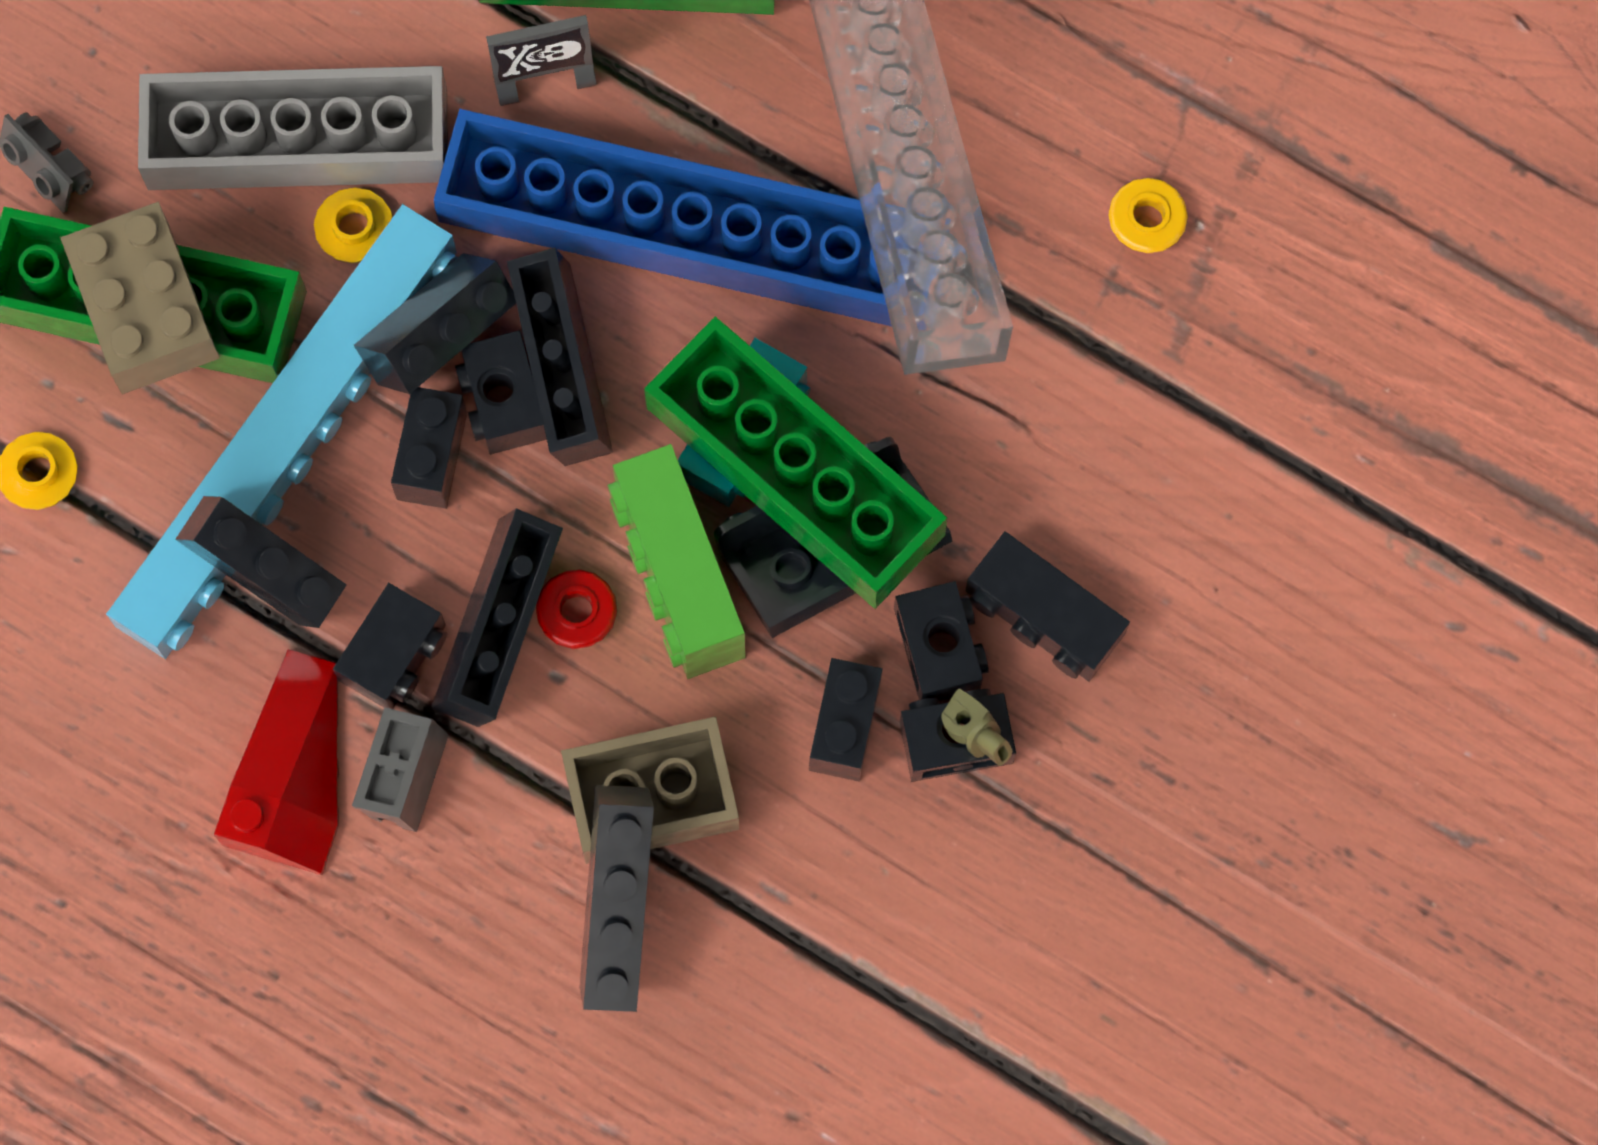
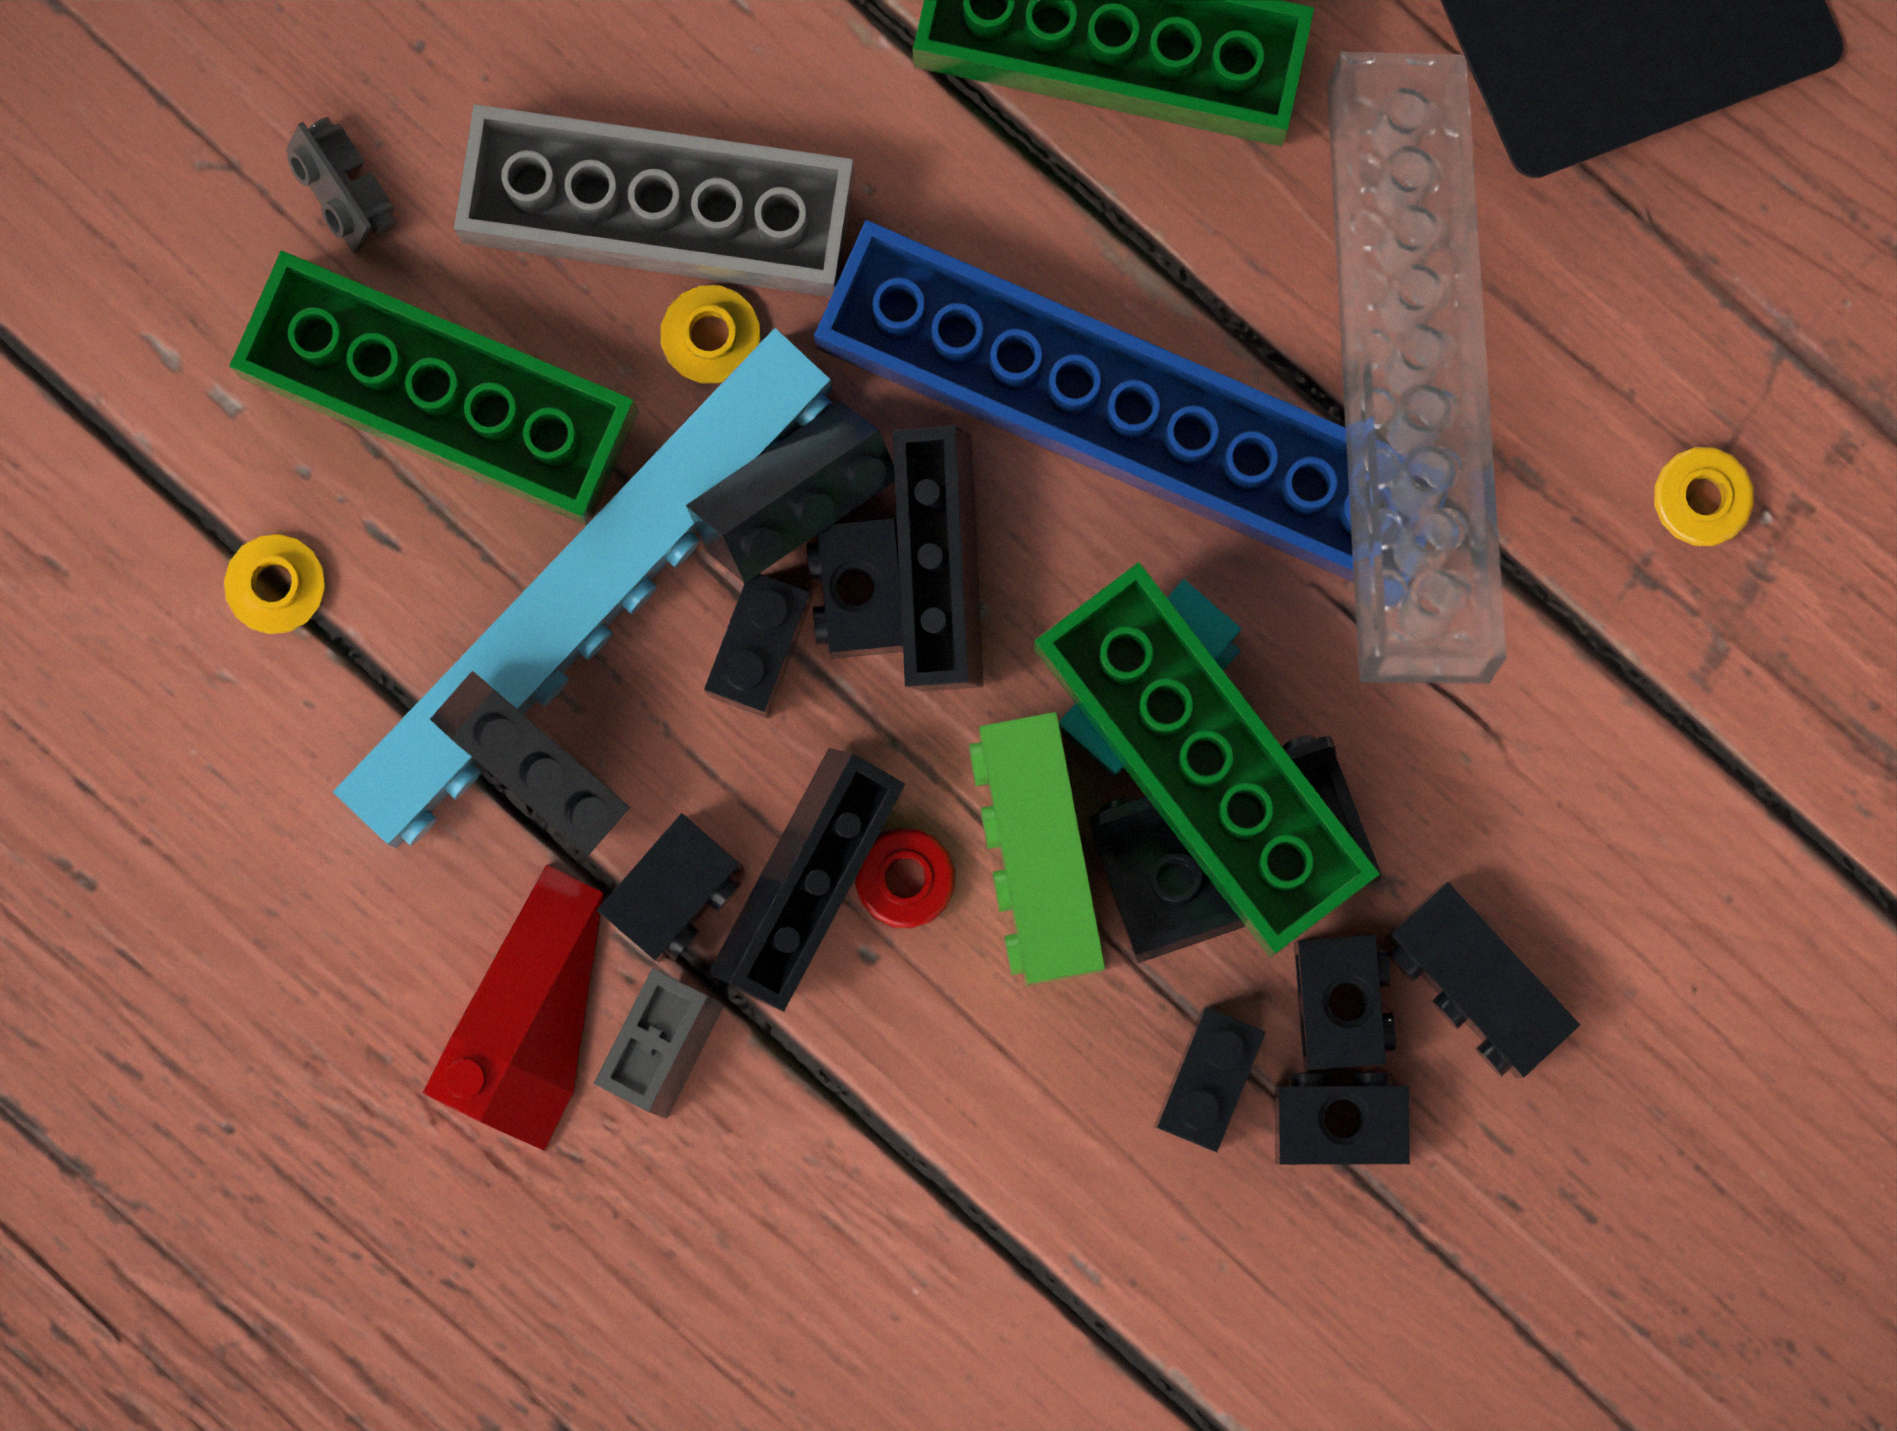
camera: 15 degrees right, 10 degrees up
(139, 298) = (431, 407): dark tan brick -> none
(540, 52) = (979, 165): flag -> none
(616, 898) = (893, 1262): black brick -> none
(678, 765) = (957, 1128): dark tan brick -> none
(981, 733) = (1371, 1136): olive piece -> none

